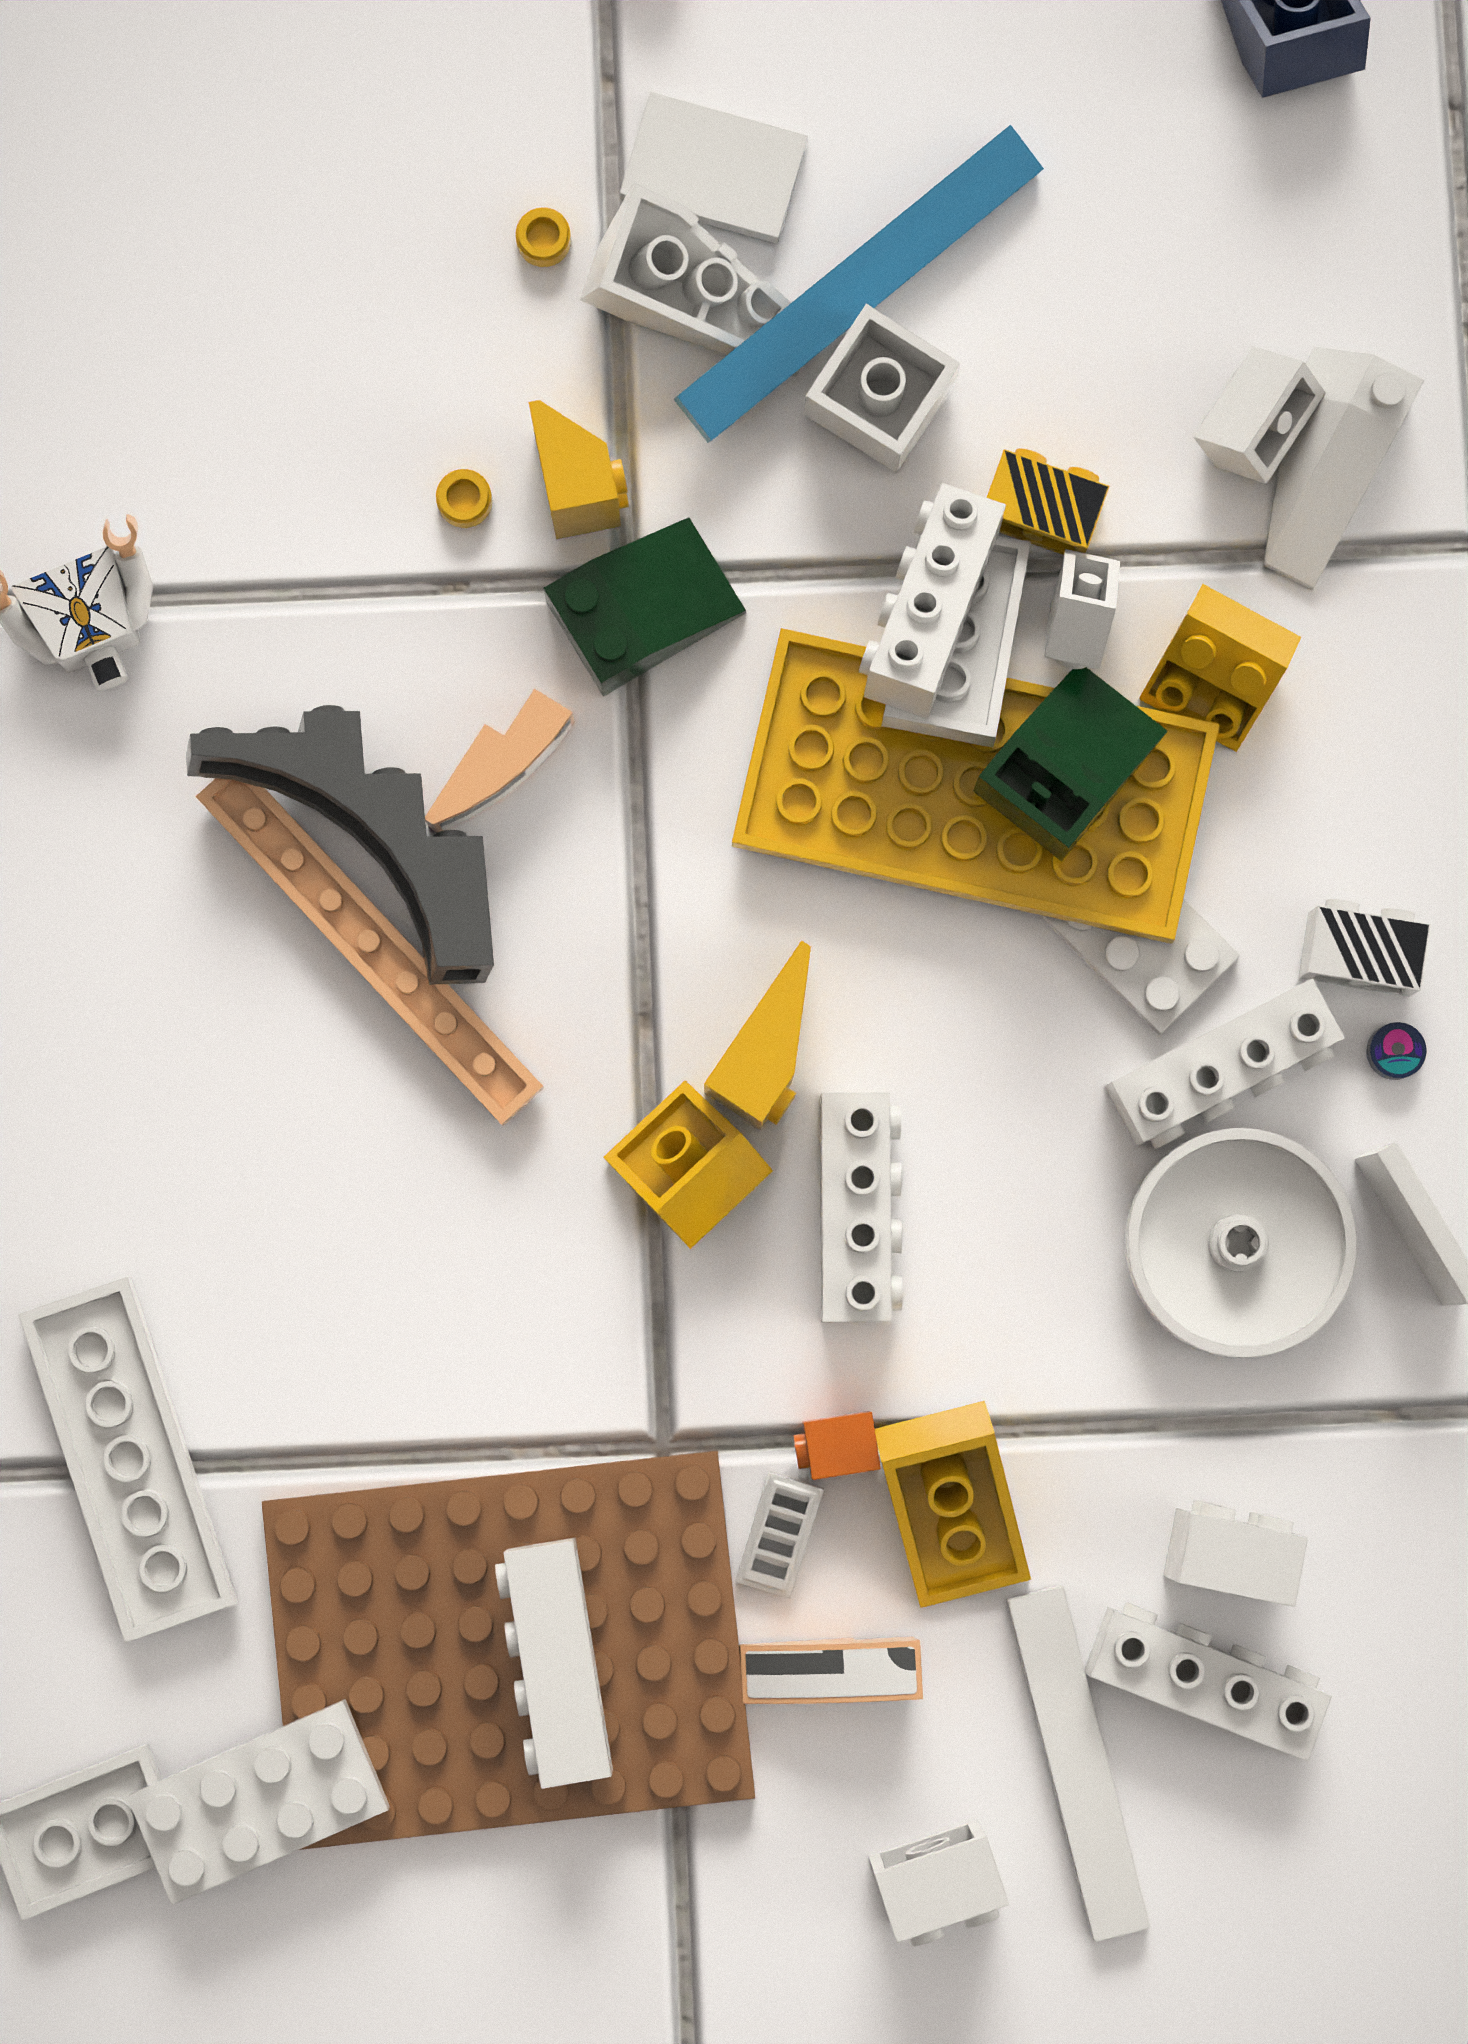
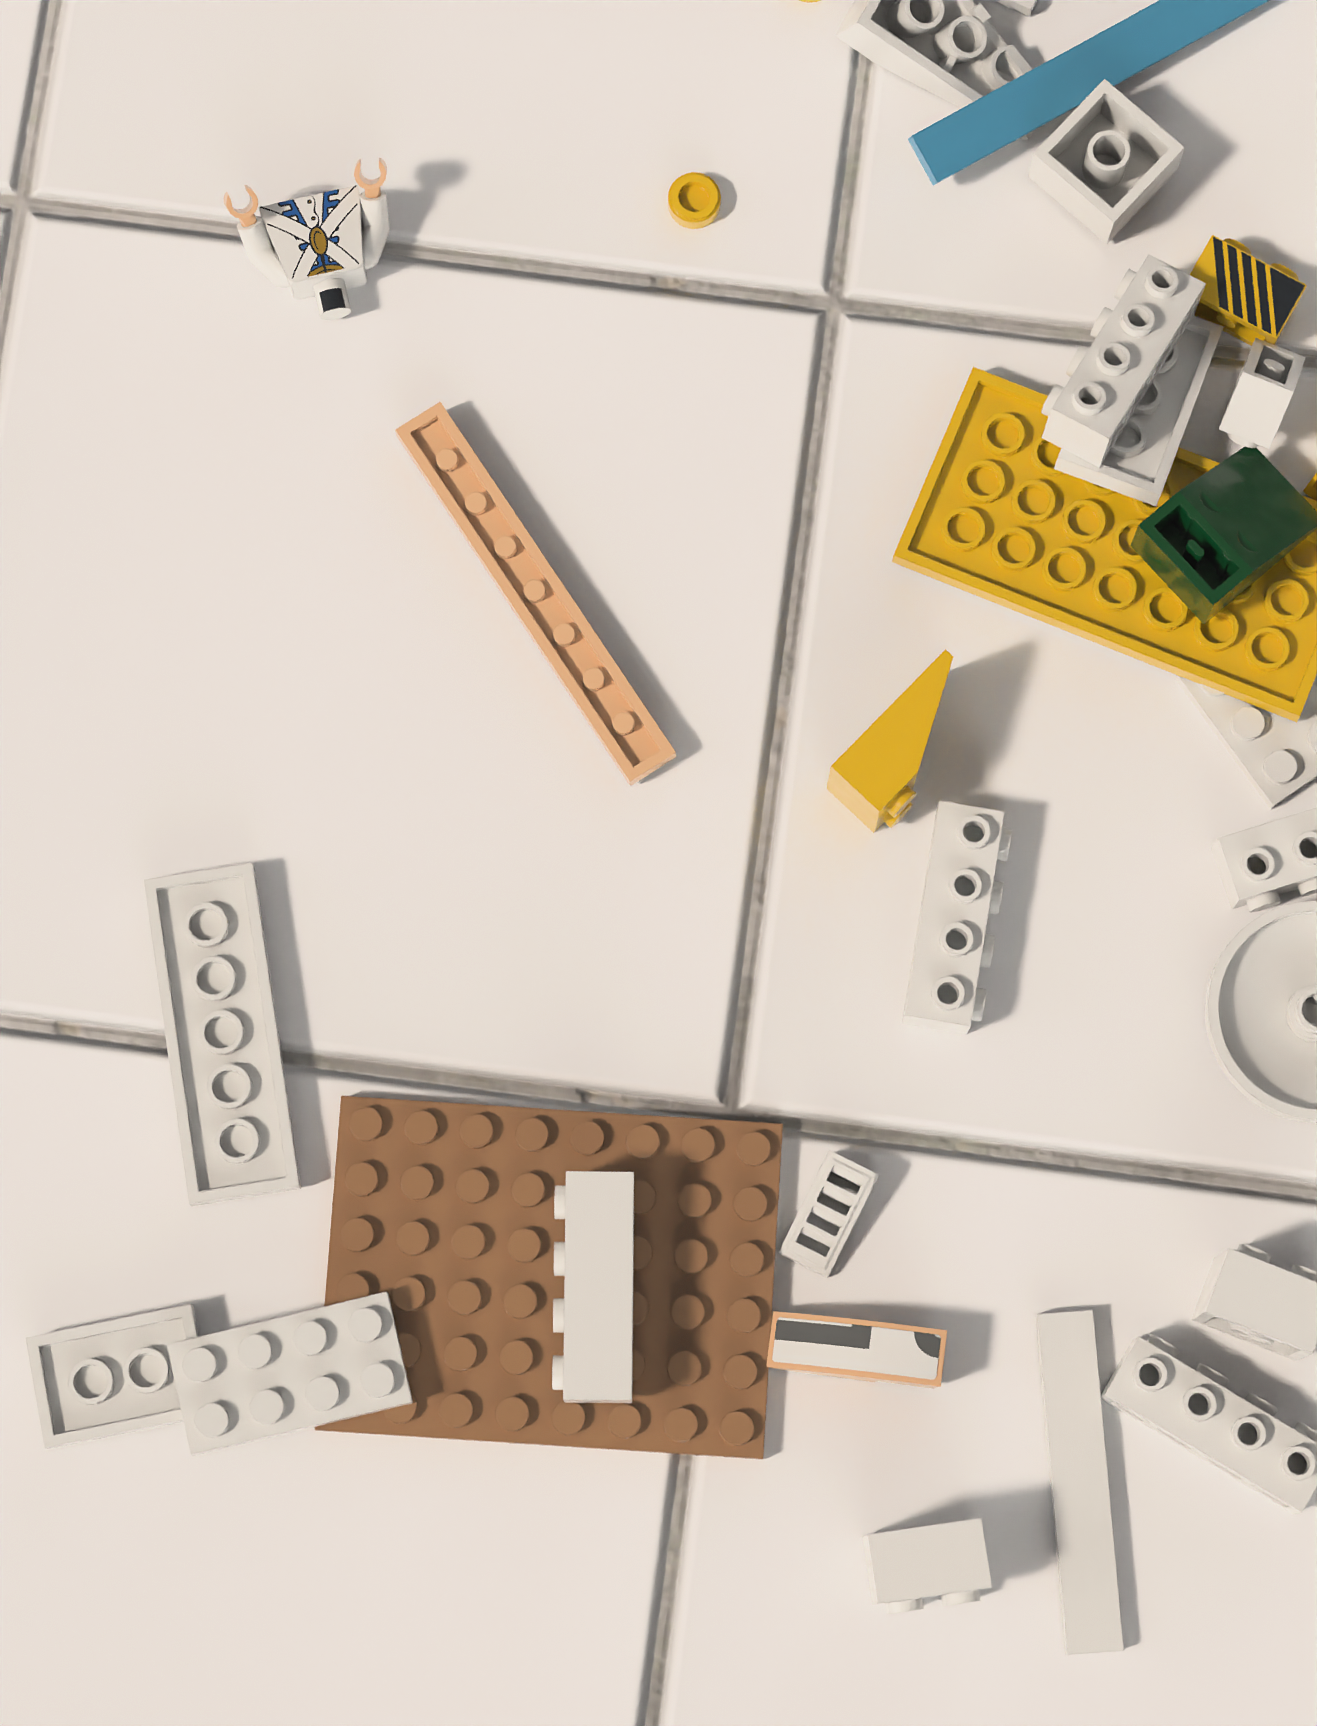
camera: 15 degrees right, 5 degrees down
(384, 812) = (569, 472): dark grey arch -> none
(500, 762) = (687, 446): light nougat slope -> none
(577, 474) = (807, 192): yellow slope -> none
(642, 603) = (845, 324): dark green slope -> none
(688, 1163) = (801, 849): yellow slope -> none
(838, 1445) = (899, 1137): orange brick -> none
(952, 1504) = (999, 1213): yellow slope -> none

